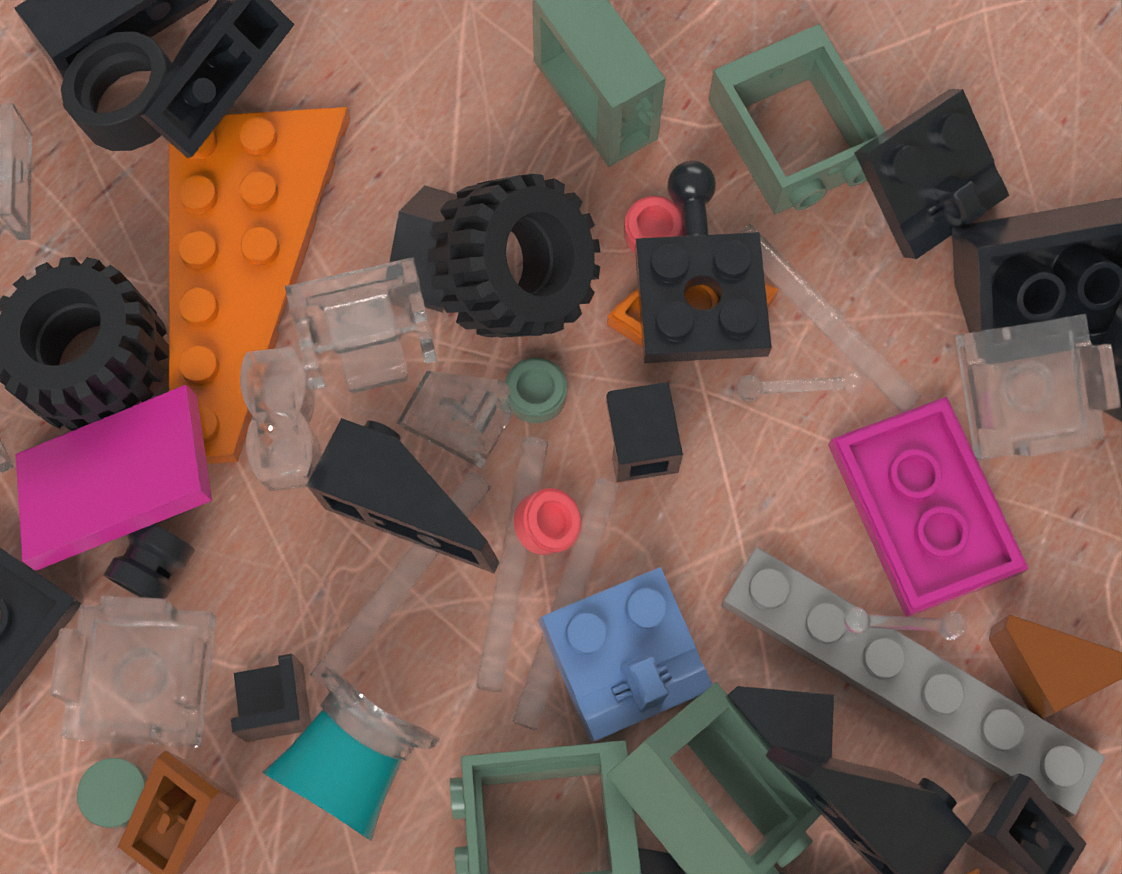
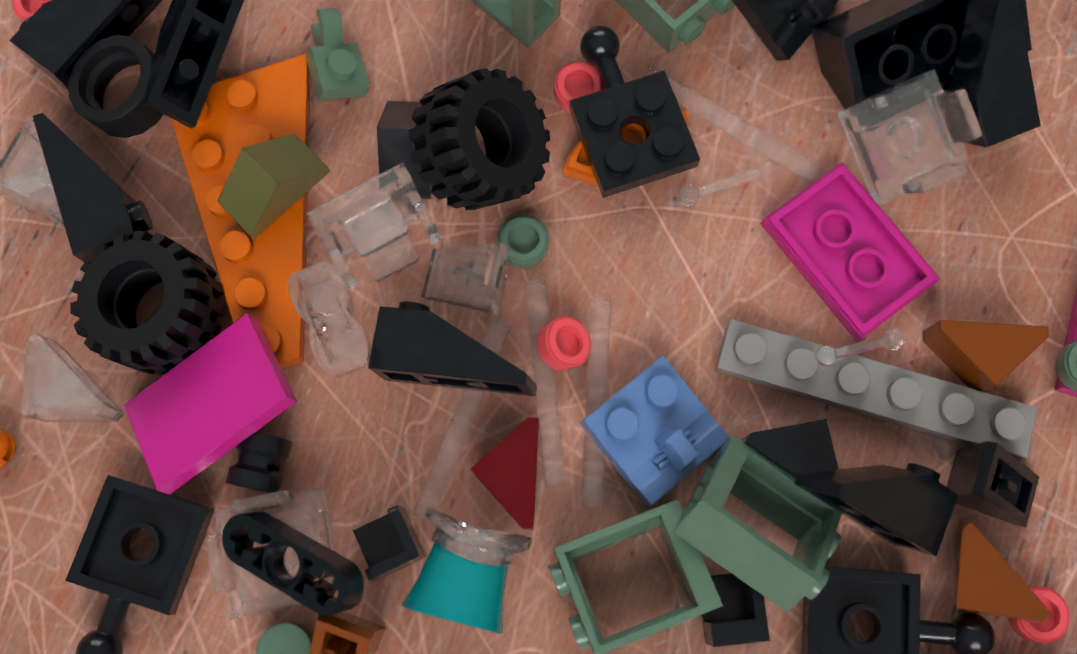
camera: 15 degrees left, 5 degrees up
(46, 205) = (88, 198): none -> black slope
(175, 688) = (314, 562): none -> black beam
(258, 240) = (269, 181): none -> olive slope
(373, 130) = (335, 66): none -> sand green plate
(441, 655) = (511, 472): none -> dark red slope
(644, 432) = (620, 252): black panel -> none

